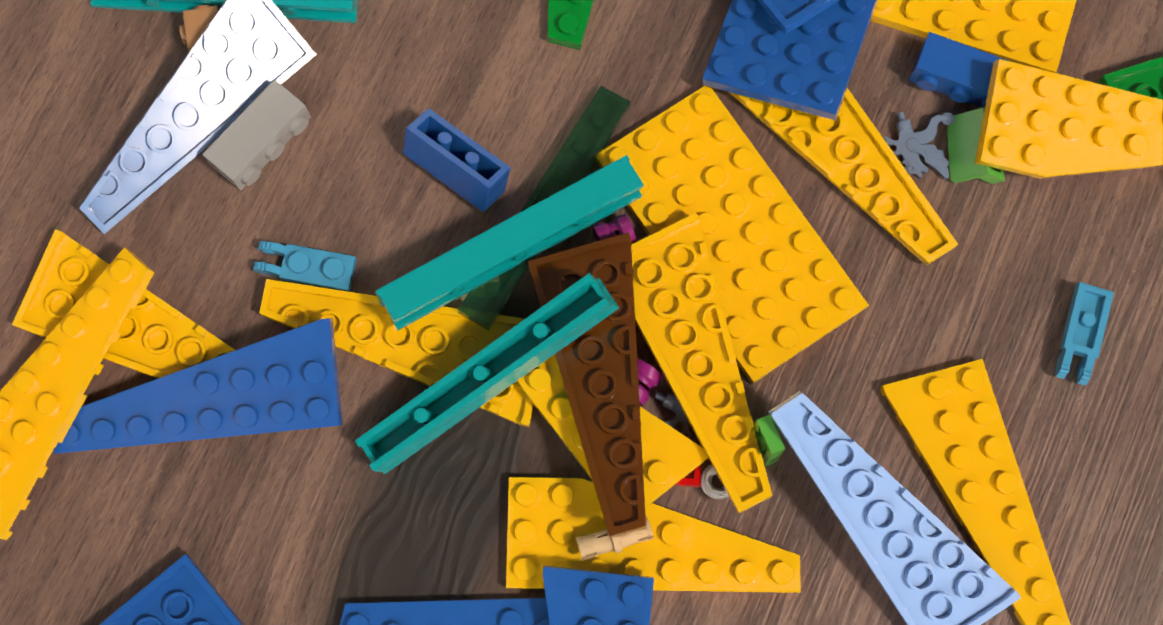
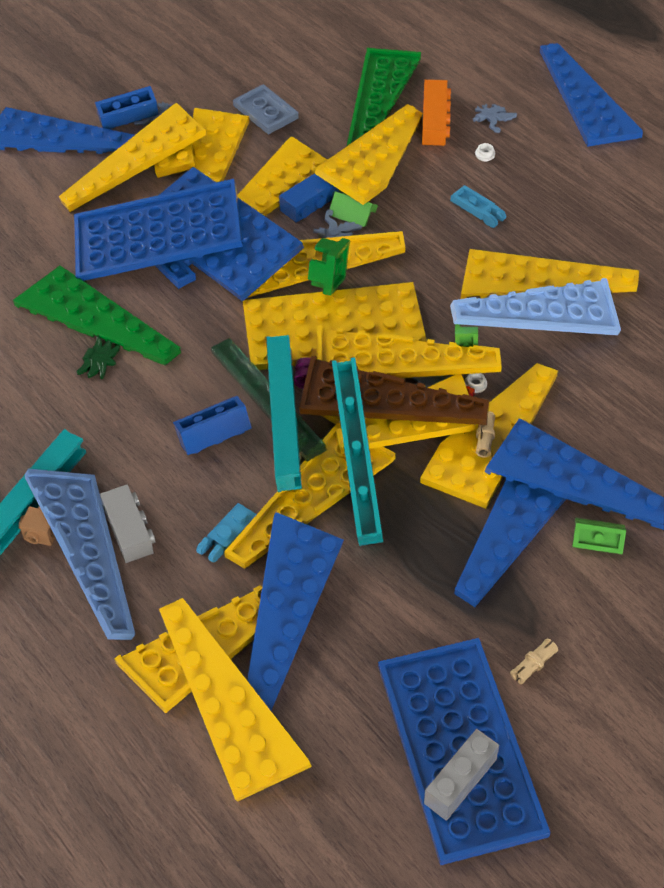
camera: 60 degrees left, 25 degrees down
(818, 182) = (333, 267): none -> green panel

